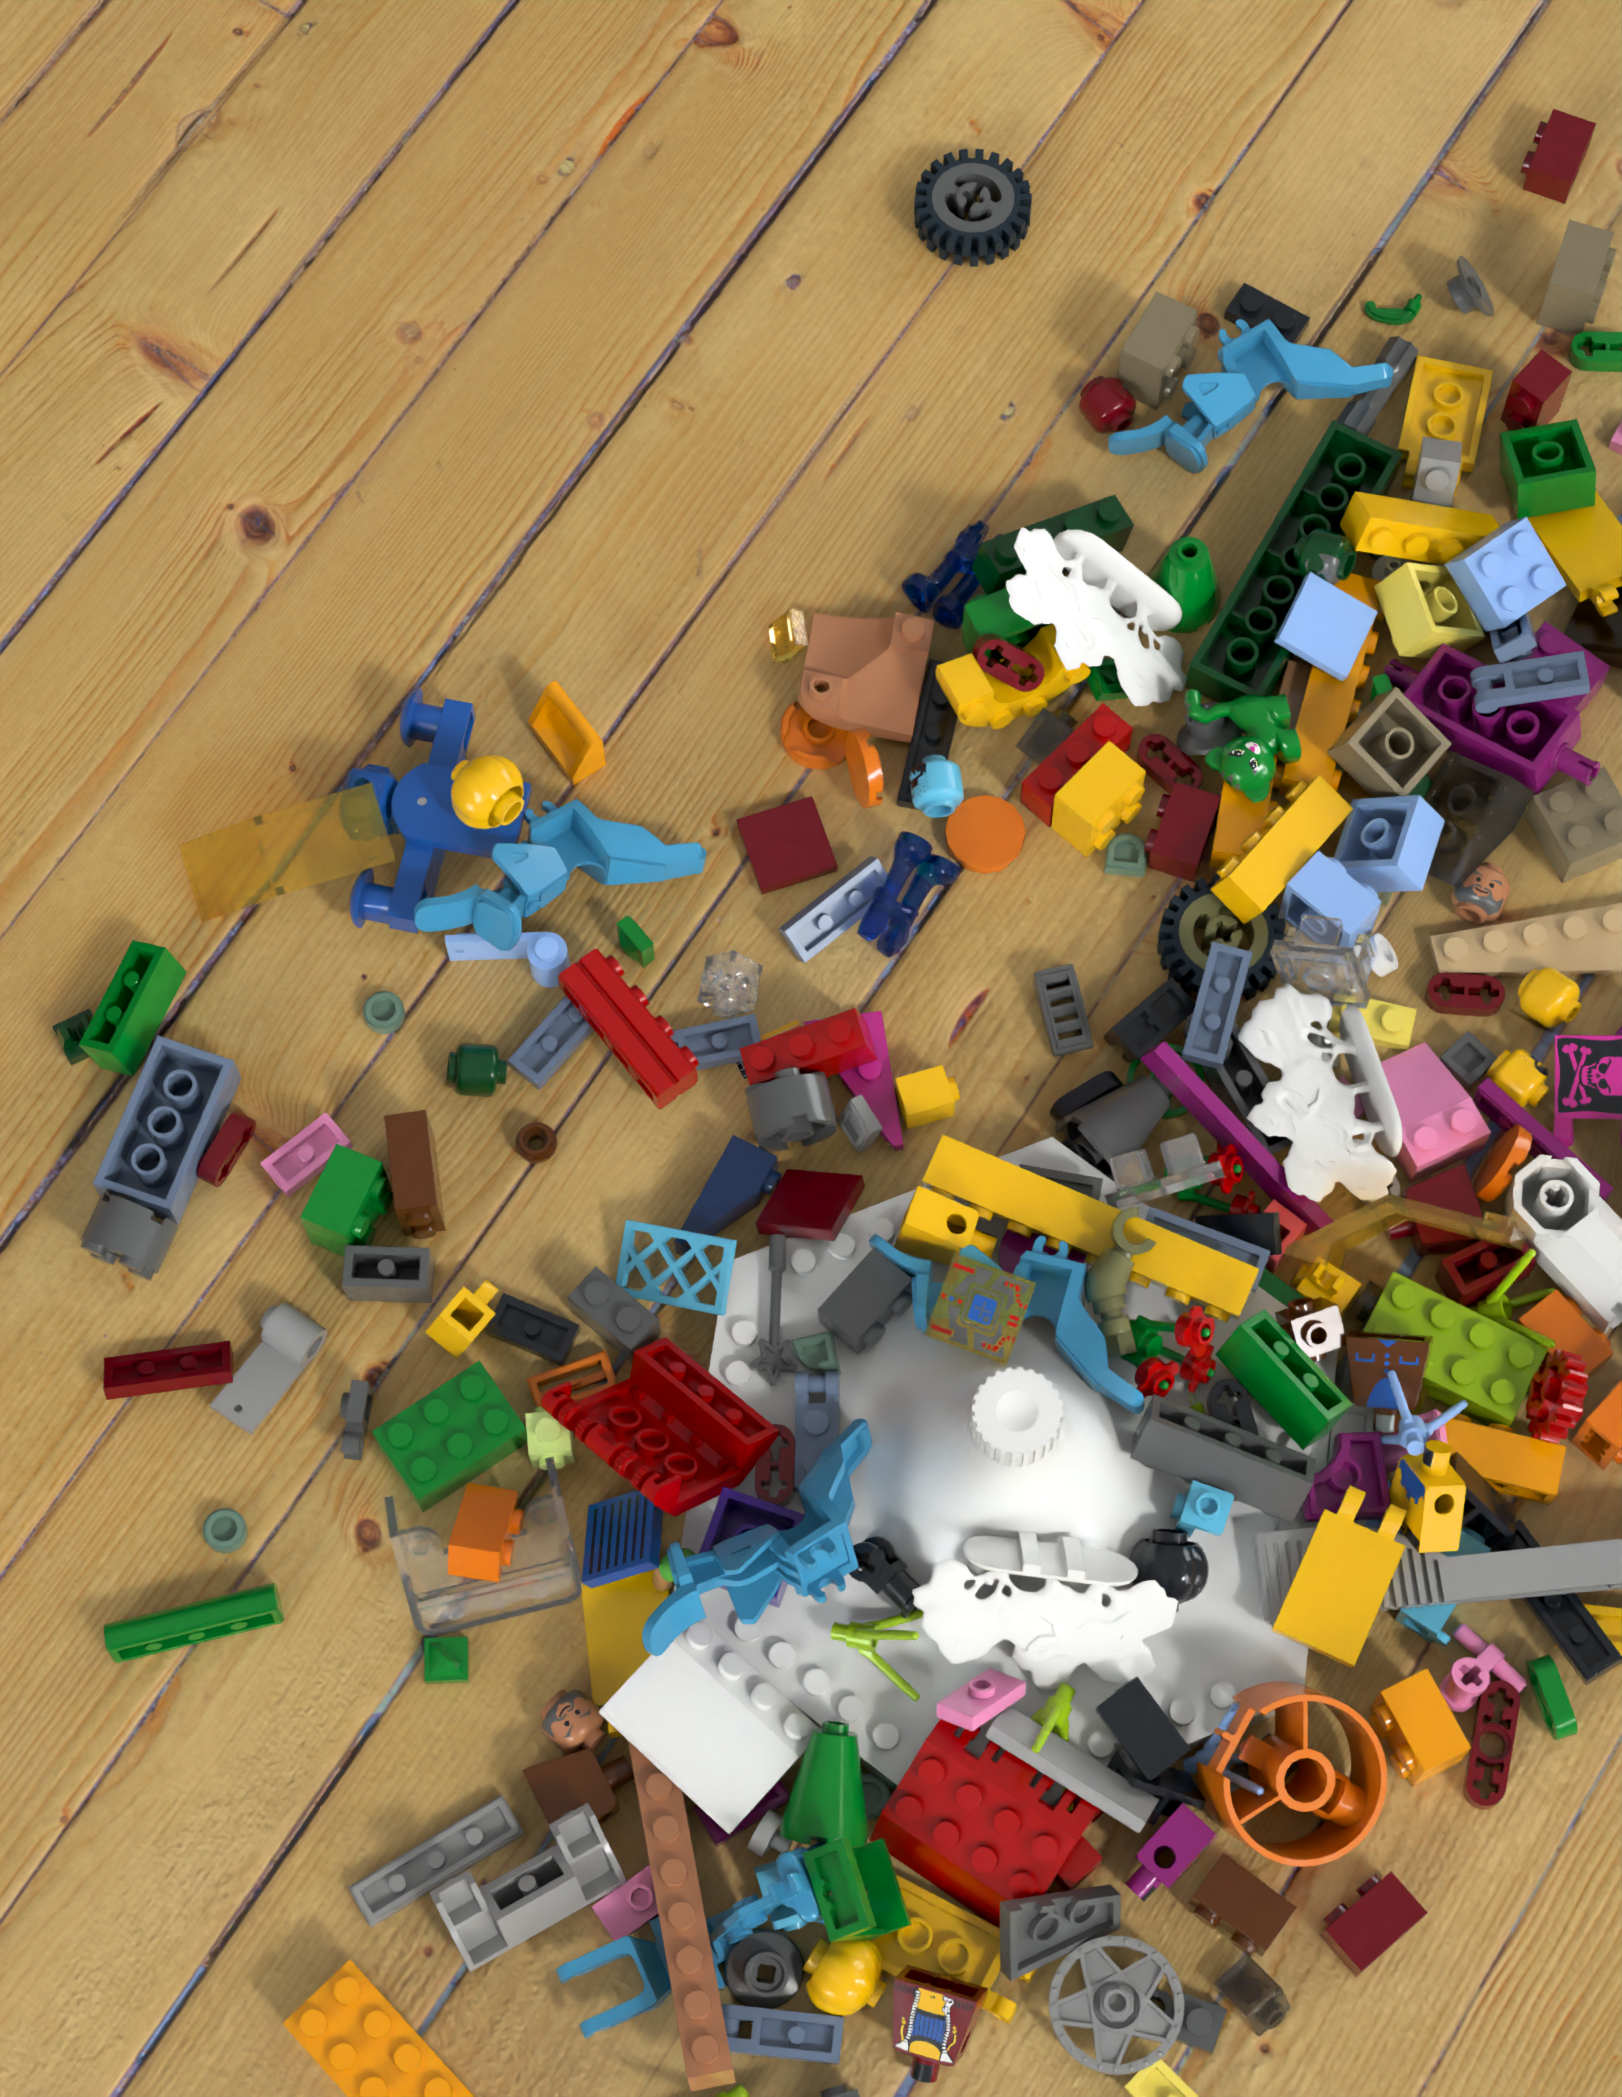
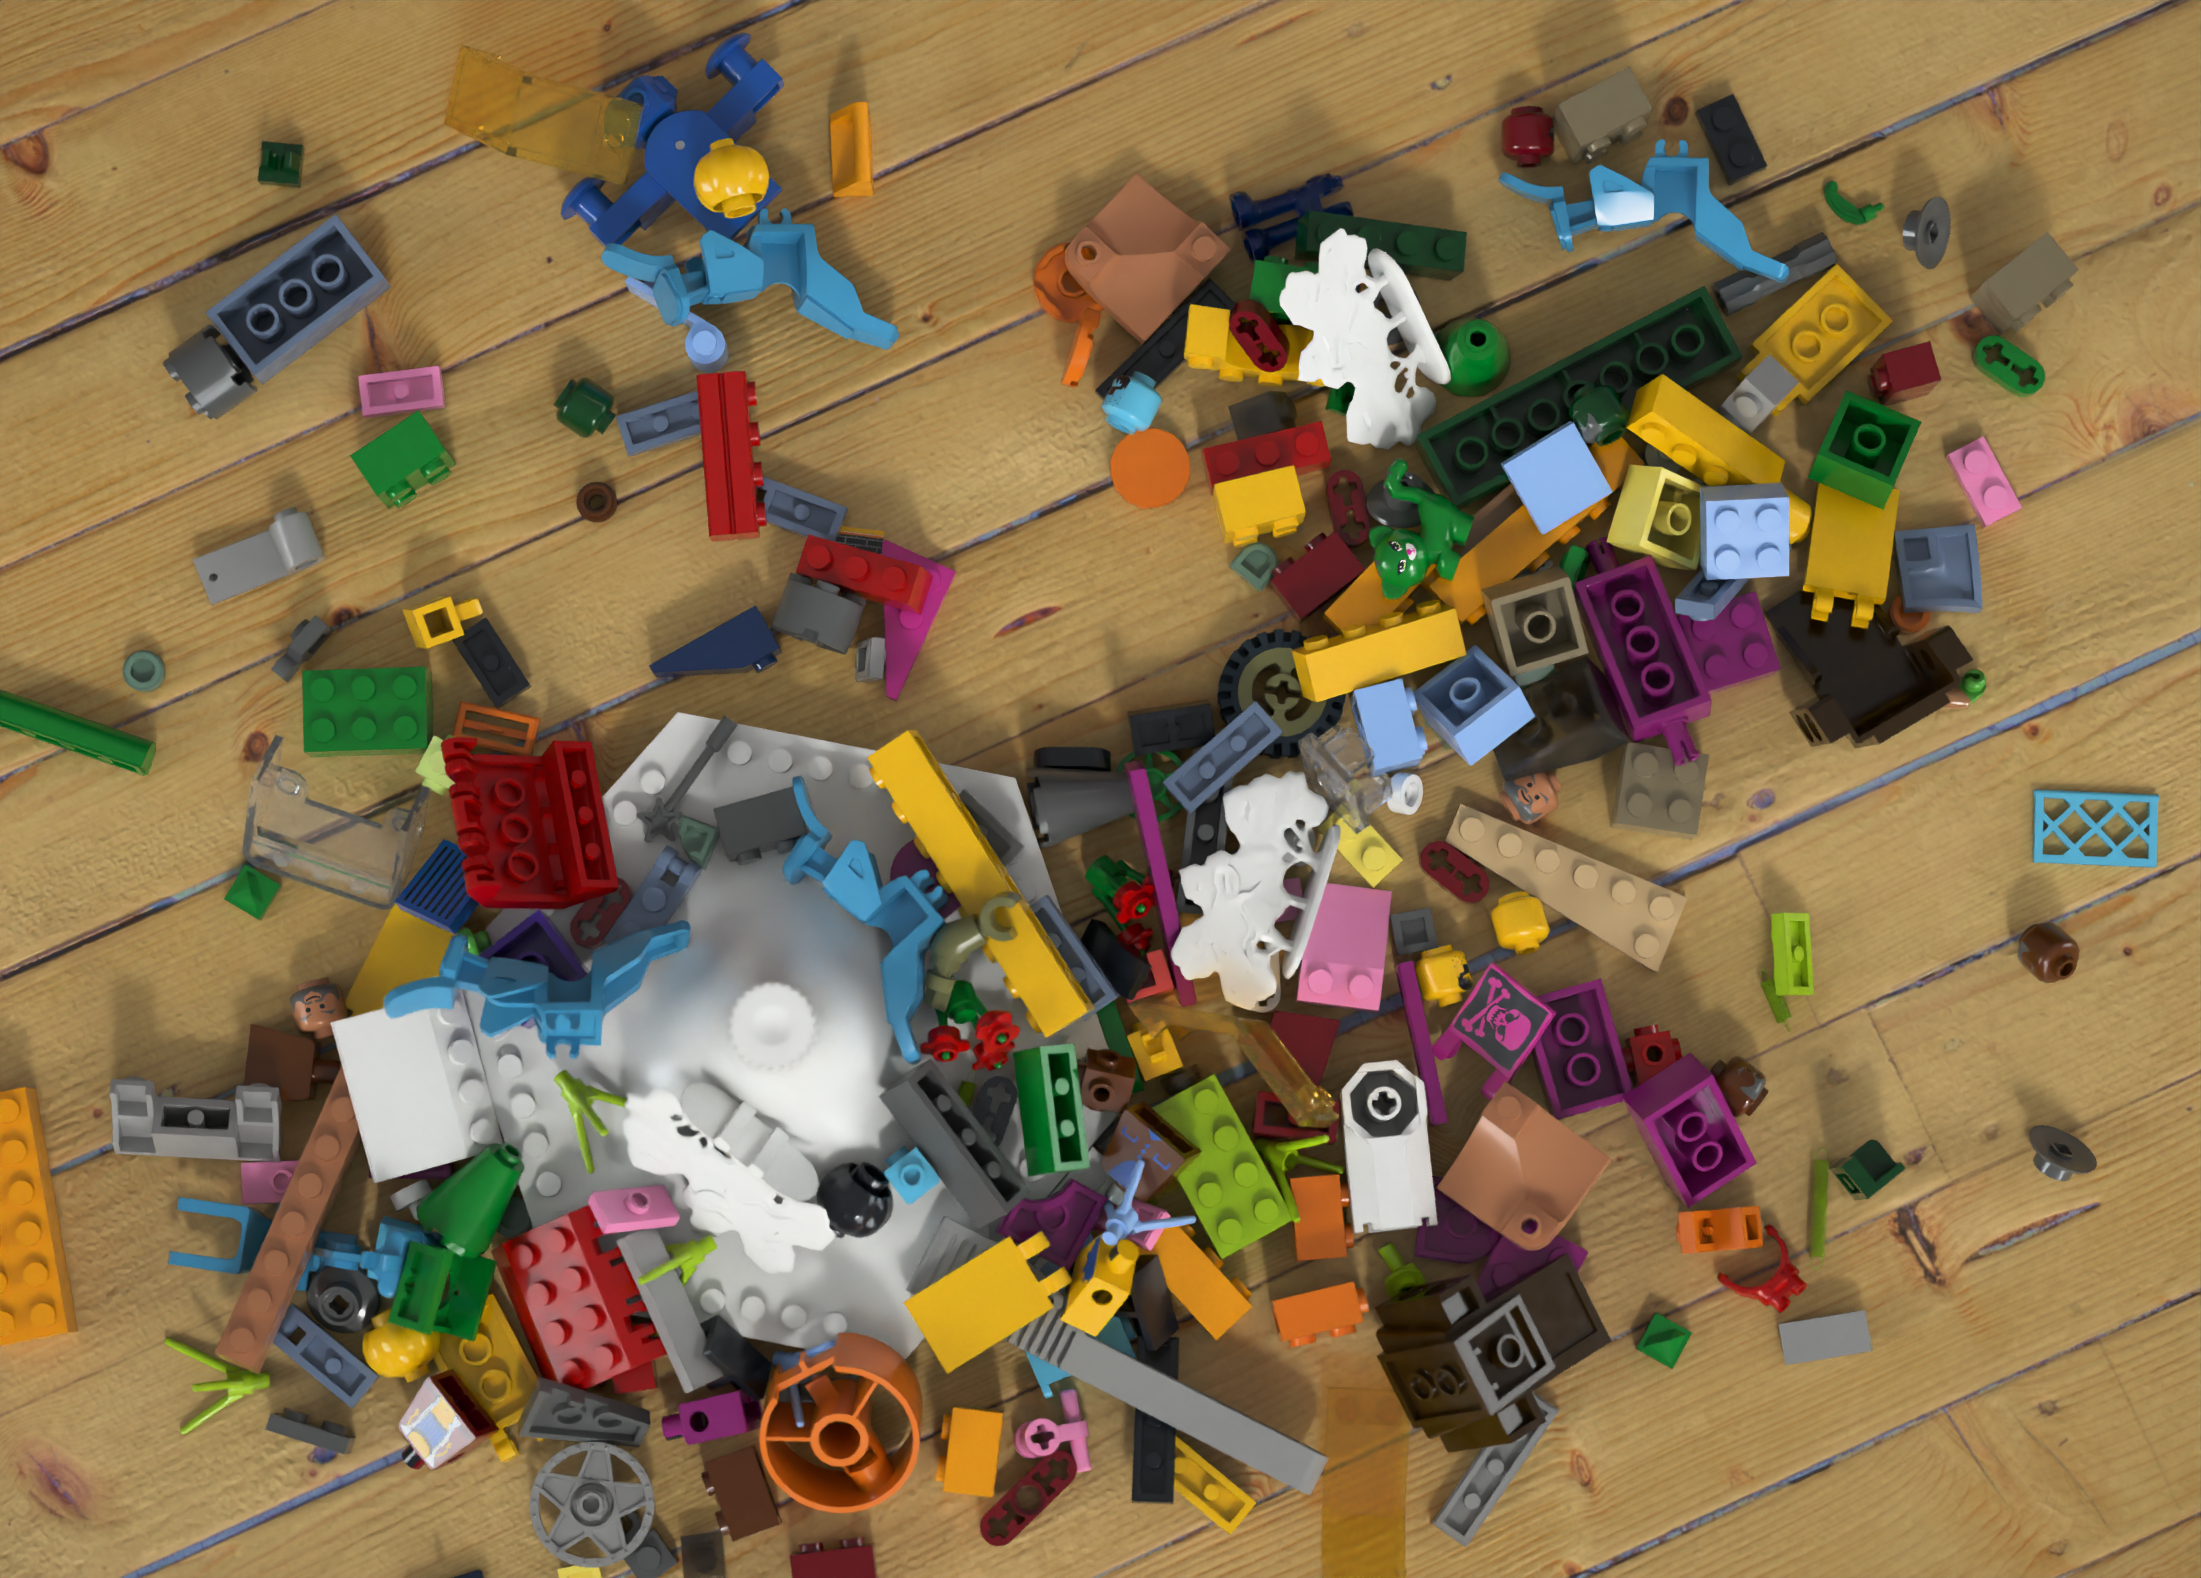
camera: 30 degrees right, 15 degrees up
(133, 1008) = (335, 171): green brick -> none
(168, 1370) = (177, 507): dark red plate -> none
(226, 1149) = (339, 344): dark red beam -> none
(384, 1012) = (544, 304): sand green tile -> none
(388, 1274) = (401, 542): dark grey brick -> none
(415, 1174) = (474, 471): reddish brown brick -> none
(436, 1861) = (146, 1047): light grey tile -> none
(484, 1532) = (341, 811): orange brick -> none
(613, 1313) = (563, 694): dark grey brick -> none
(635, 941) = (788, 377): green tile -> none
(698, 1243) = (608, 655): medium azure window -> none
(729, 984) = (841, 469): clear brick -> none
(786, 845) = (976, 370): dark red tile -> none
(788, 635) = (1101, 179): clear yellow plate -> none
(810, 1204) = (780, 706): dark red tile -> none
(833, 910) = (978, 458): sand blue plate -> none
(886, 1574) = (626, 1056): black connector -> none
(926, 1096) = (941, 671): yellow brick -> none
(931, 870) = (1016, 496): clear blue piece -> none
(939, 1227) = (846, 796): yellow torso -> none
(980, 1308) = (836, 899): tile -> none
(1053, 978) = (1120, 637): dark grey slope -> none
(1142, 1729) = (743, 1314): black panel -> none
(1184, 1167) = (1070, 878): clear panel -> none
(1497, 1168) = (1371, 1040): orange tile -> none
(1530, 681) = (1689, 645): sand blue plate -> none
(1551, 1697) = (1100, 1493): green beam -> none
(1557, 1396) = (1267, 1265): red gear -> none
(1558, 155) = (2104, 150): dark red brick -> none

